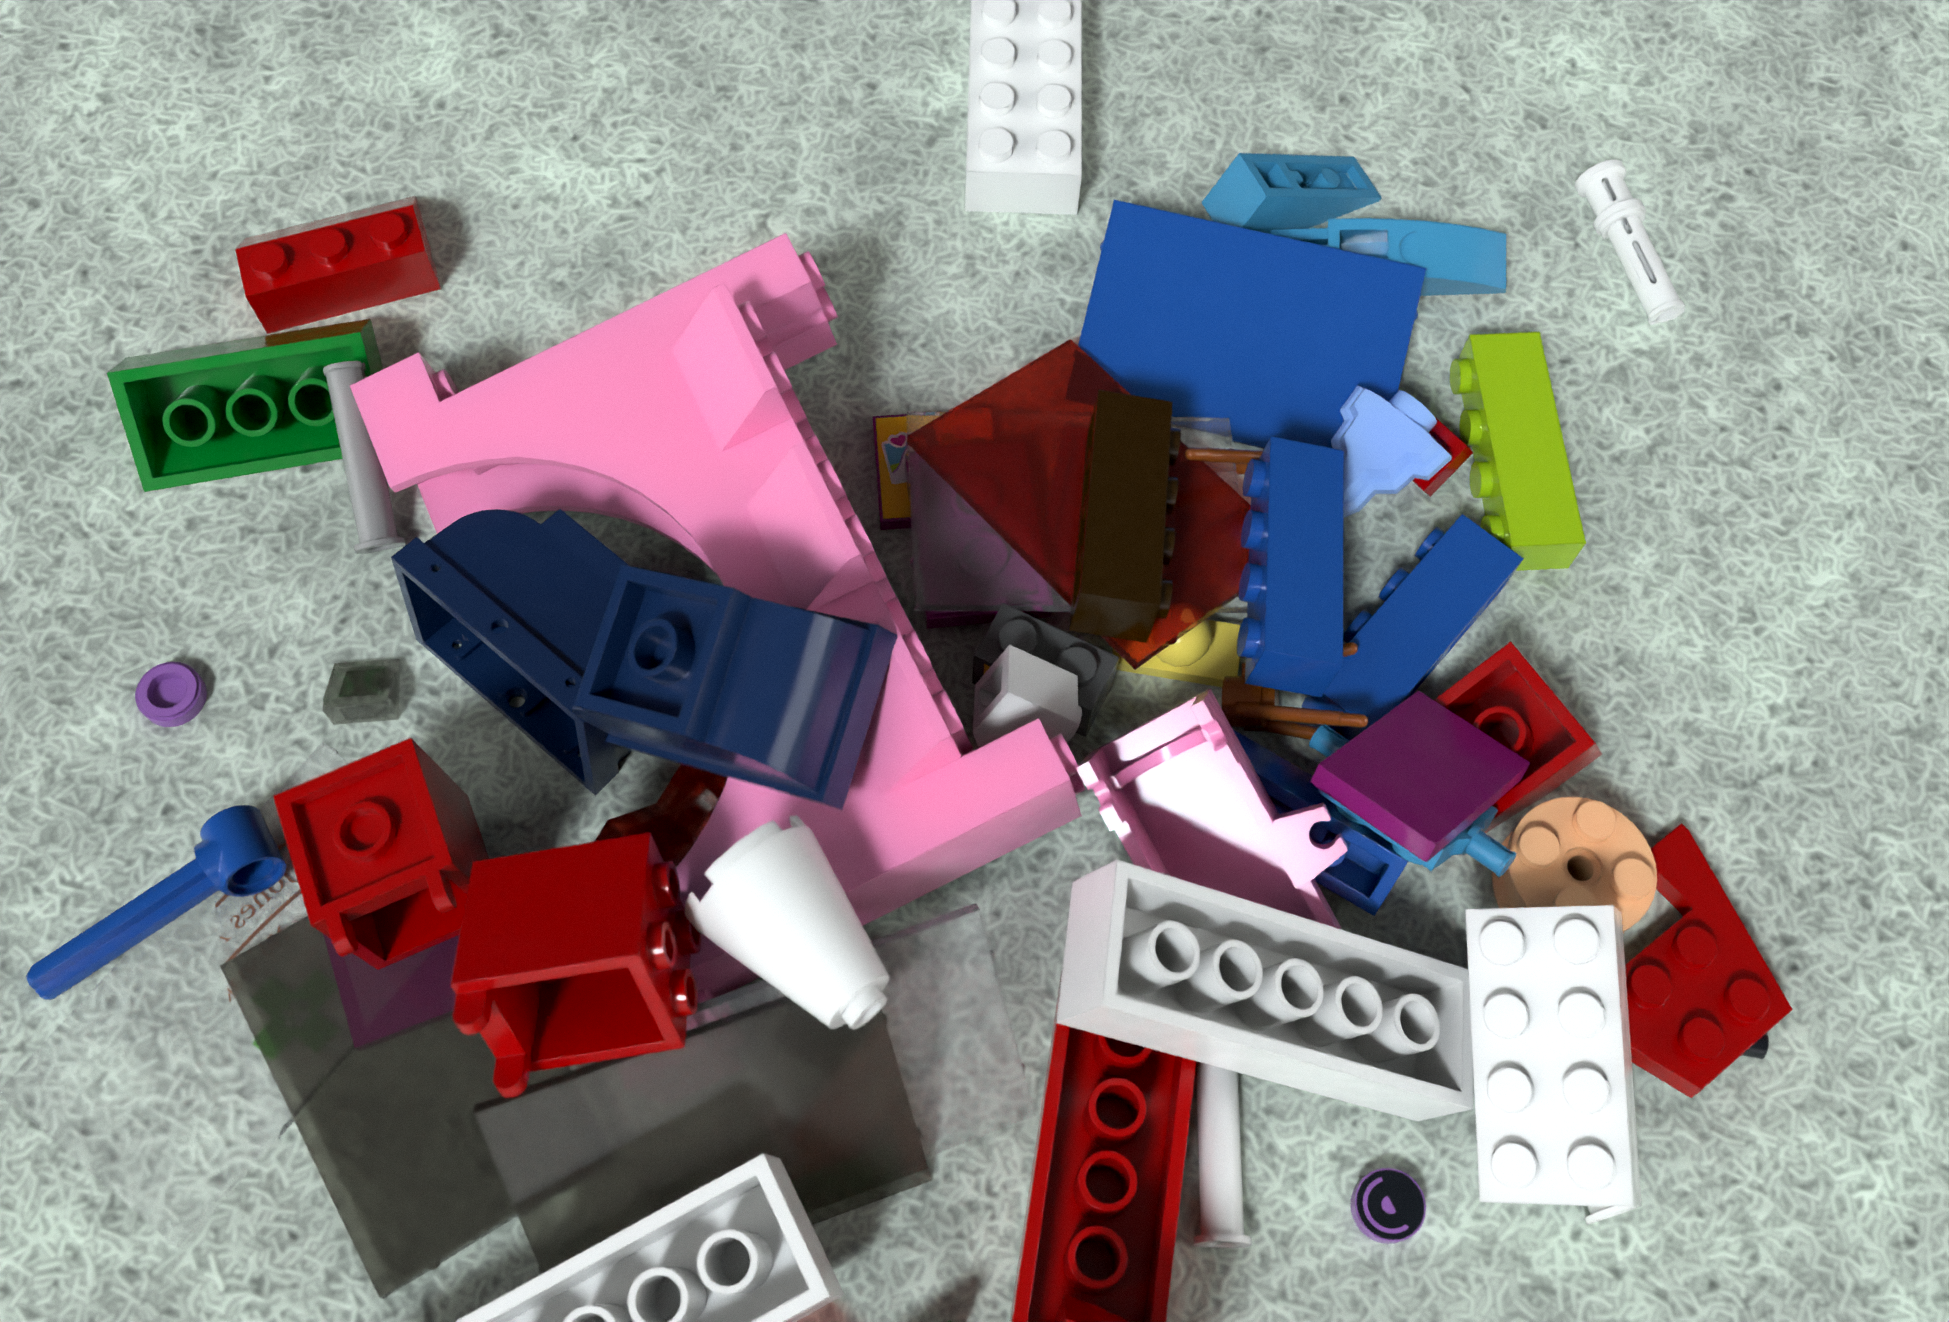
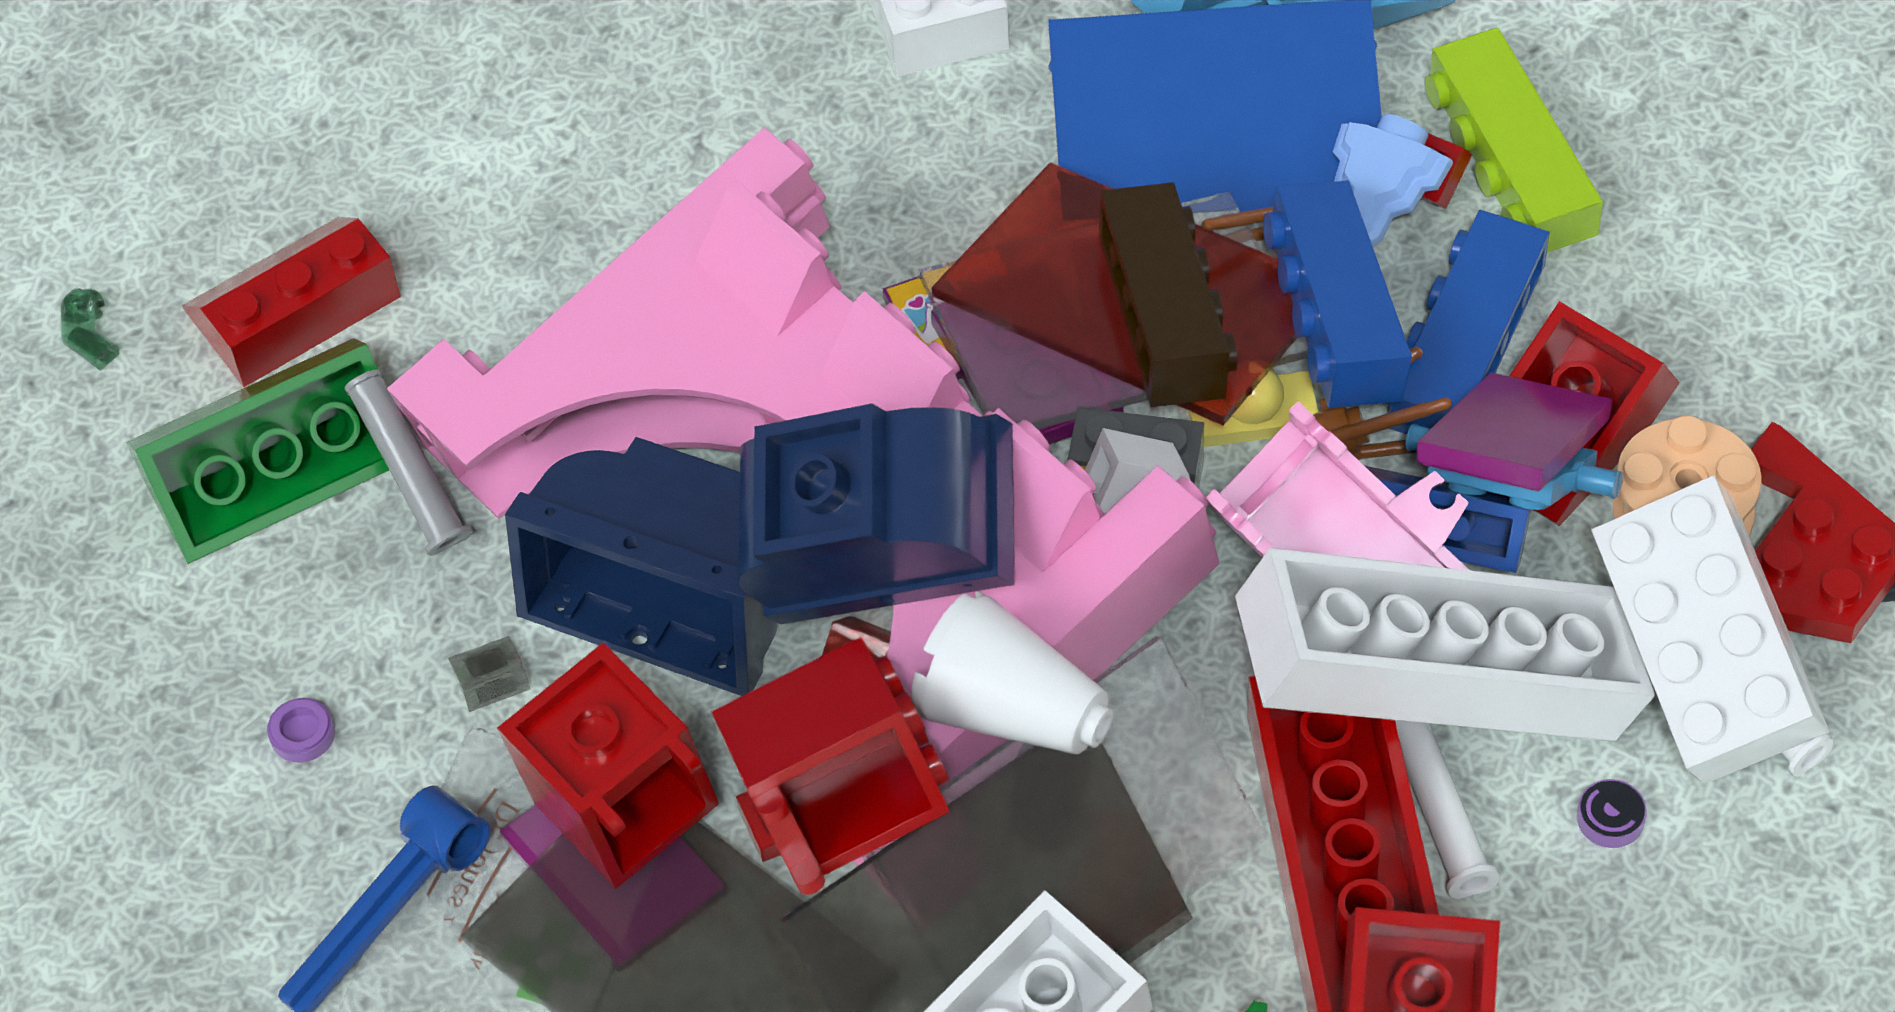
camera: 10 degrees left, 10 degrees down
(143, 233) = (78, 327): none -> clear green arm

